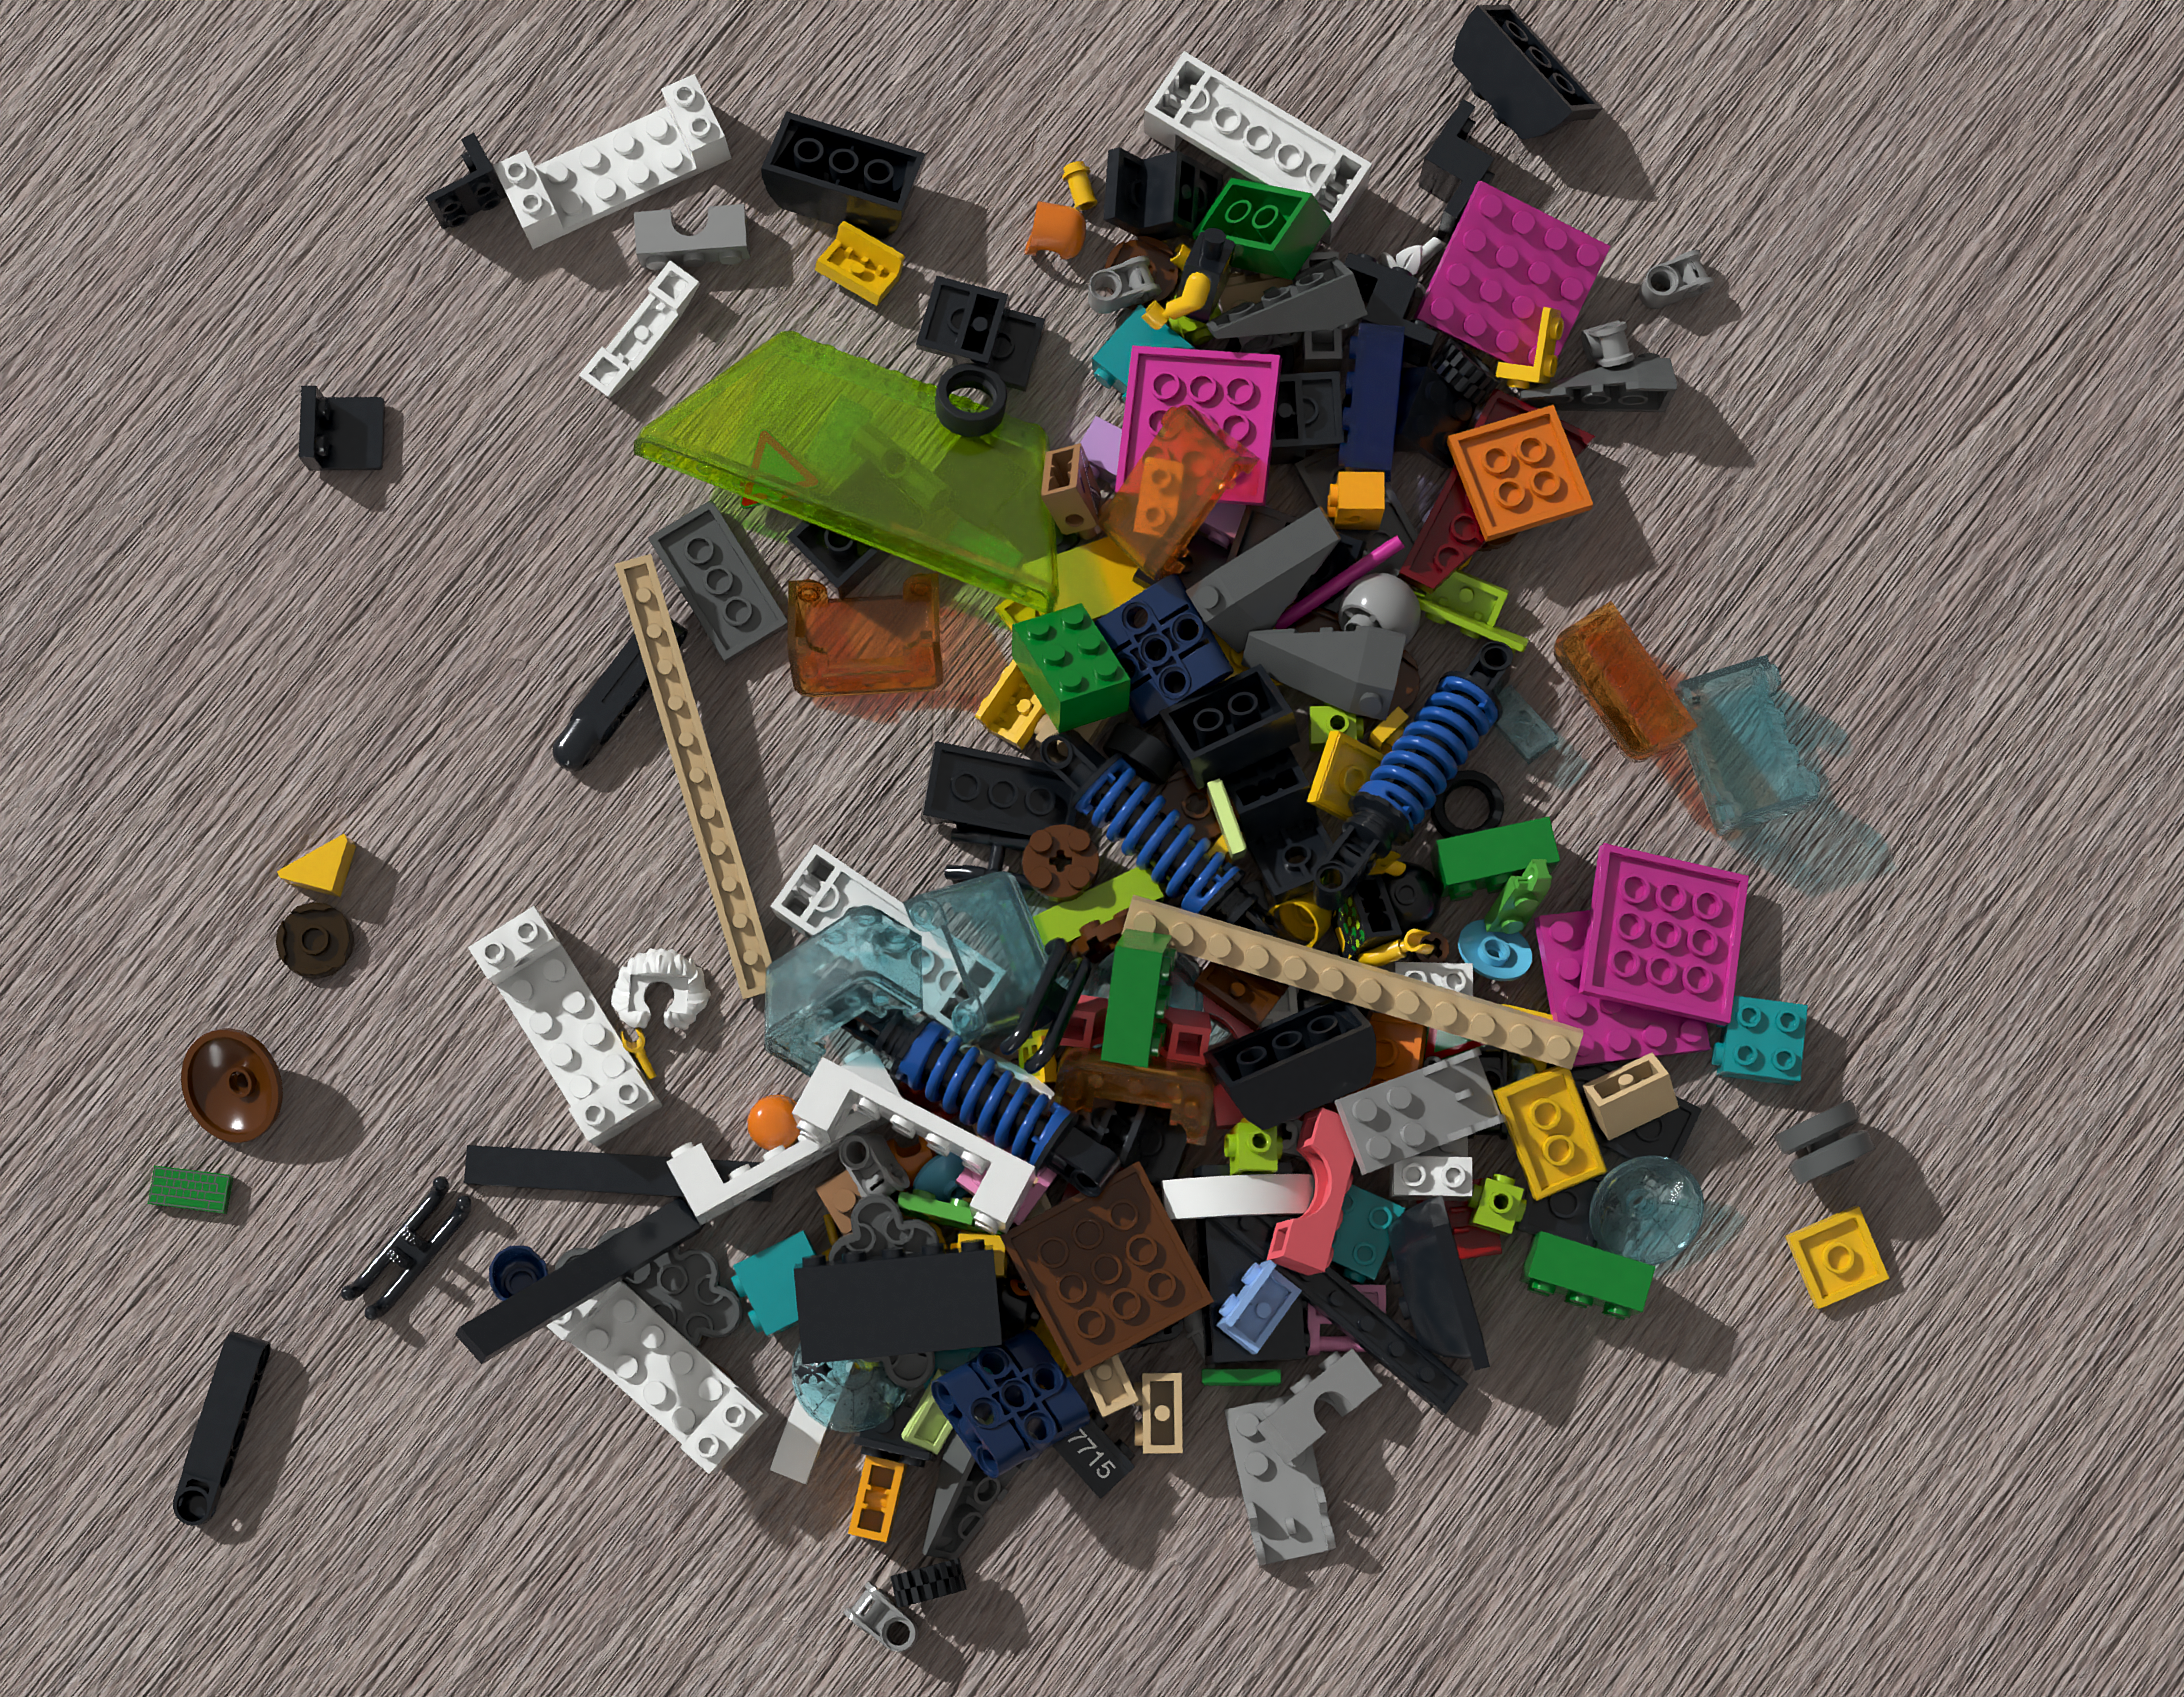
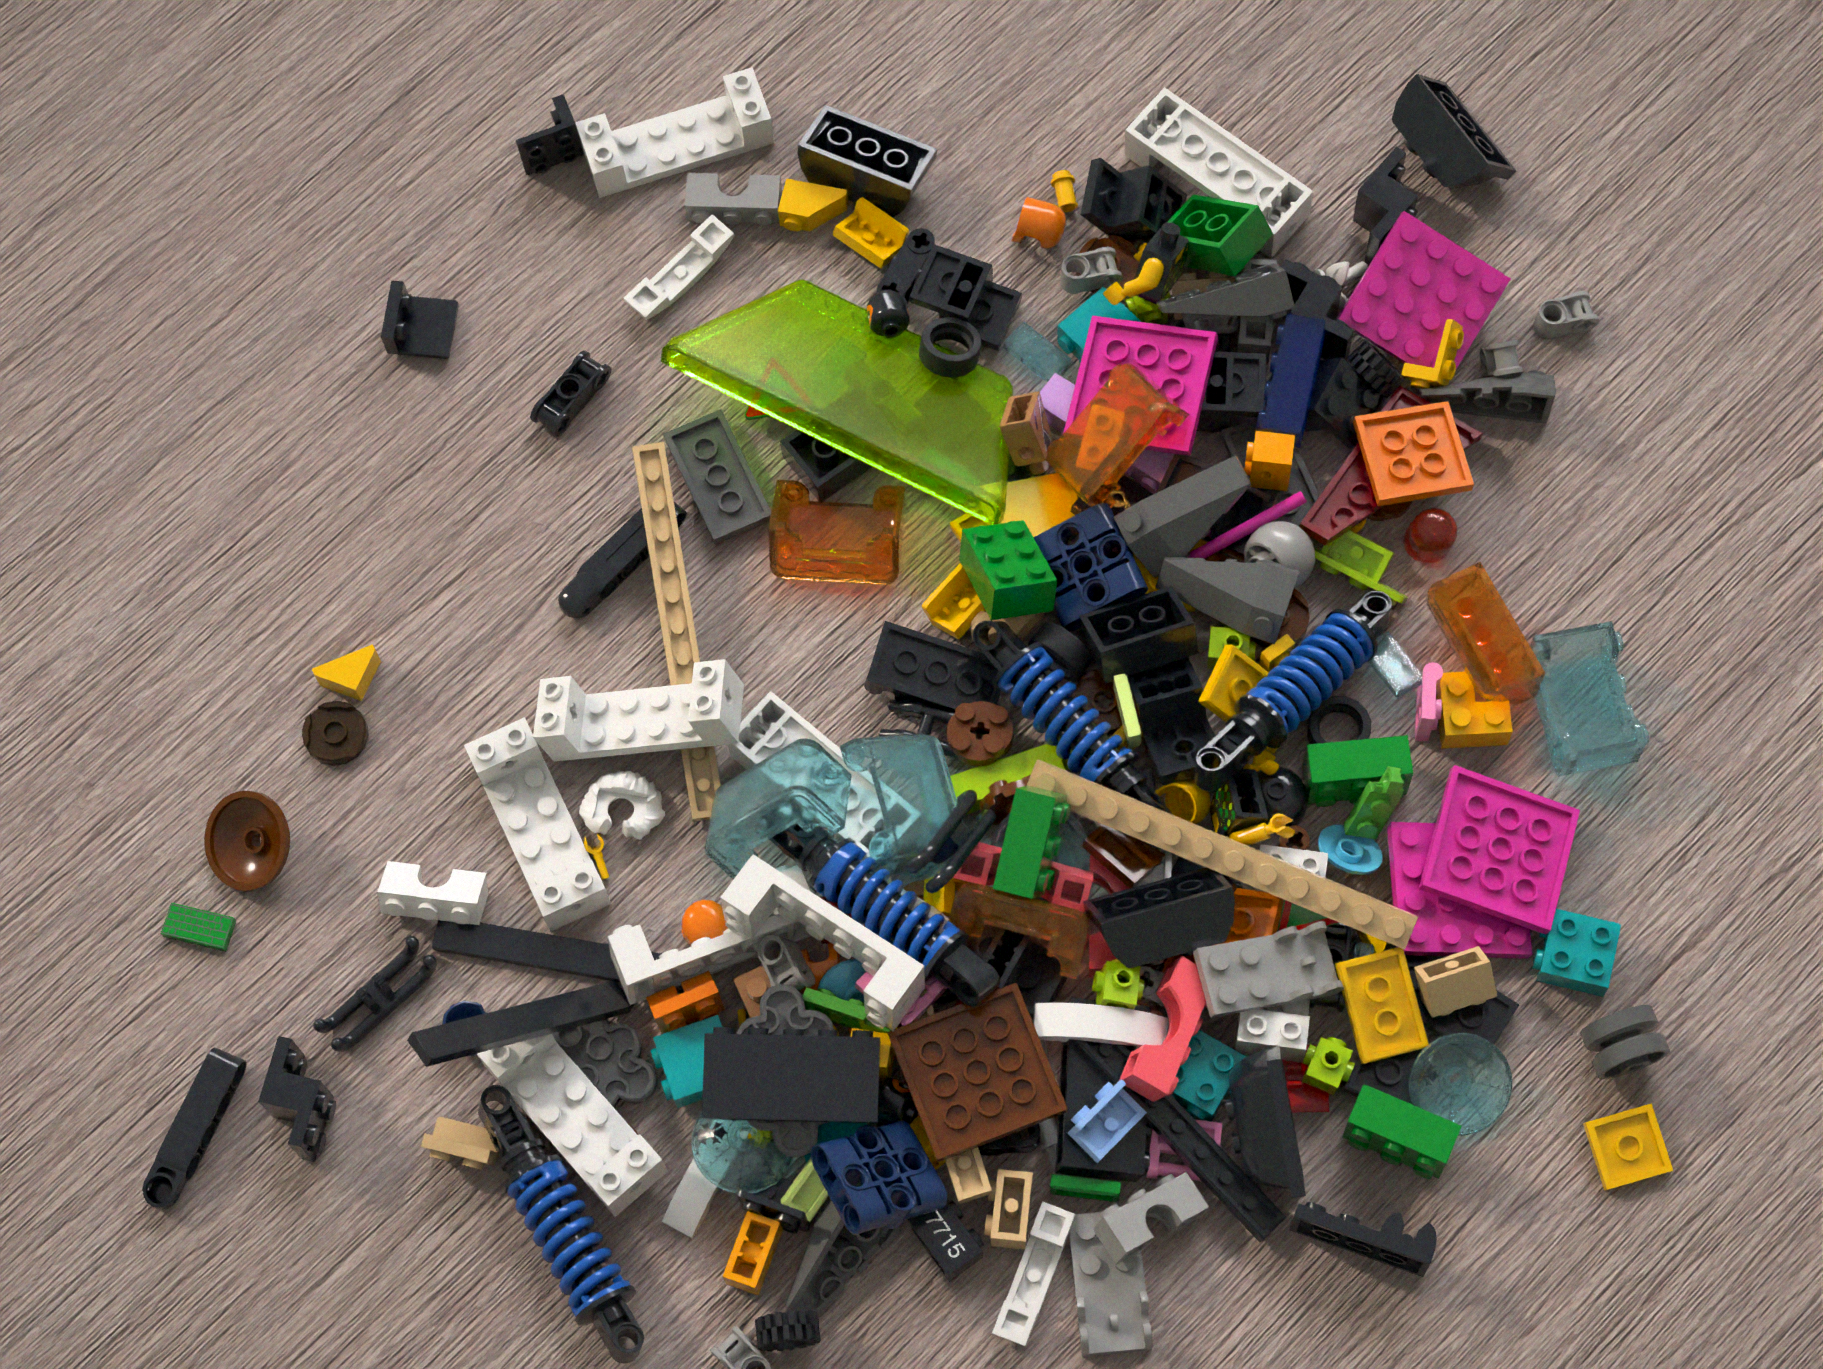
camera: 10 degrees right, 10 degrees down
(344, 1385) = (297, 1099): none -> black bracket
(486, 1128) = (457, 901): none -> white arch
(521, 521) = (558, 409): none -> black piece
(532, 1408) = (462, 1141): none -> tan bracket
(657, 1494) = (560, 1227): none -> piece
(666, 890) = (639, 720): none -> white plate
(751, 1232) = (697, 1003): none -> orange plate
(782, 235) = (809, 205): none -> yellow slope
(893, 366) = (888, 313): none -> black head
(906, 307) = (908, 263): none -> black piece
(1070, 389) = (1036, 352): none -> clear light blue plate
(1194, 1483) = (1034, 1274): none -> white slope
(1550, 563) = (1433, 533): none -> clear red helmet
(1565, 776) = (1427, 706): none -> bright pink plate
(1584, 1402) = (1382, 1246): none -> black hinge
(1606, 782) = (1470, 722): none -> yellow brick

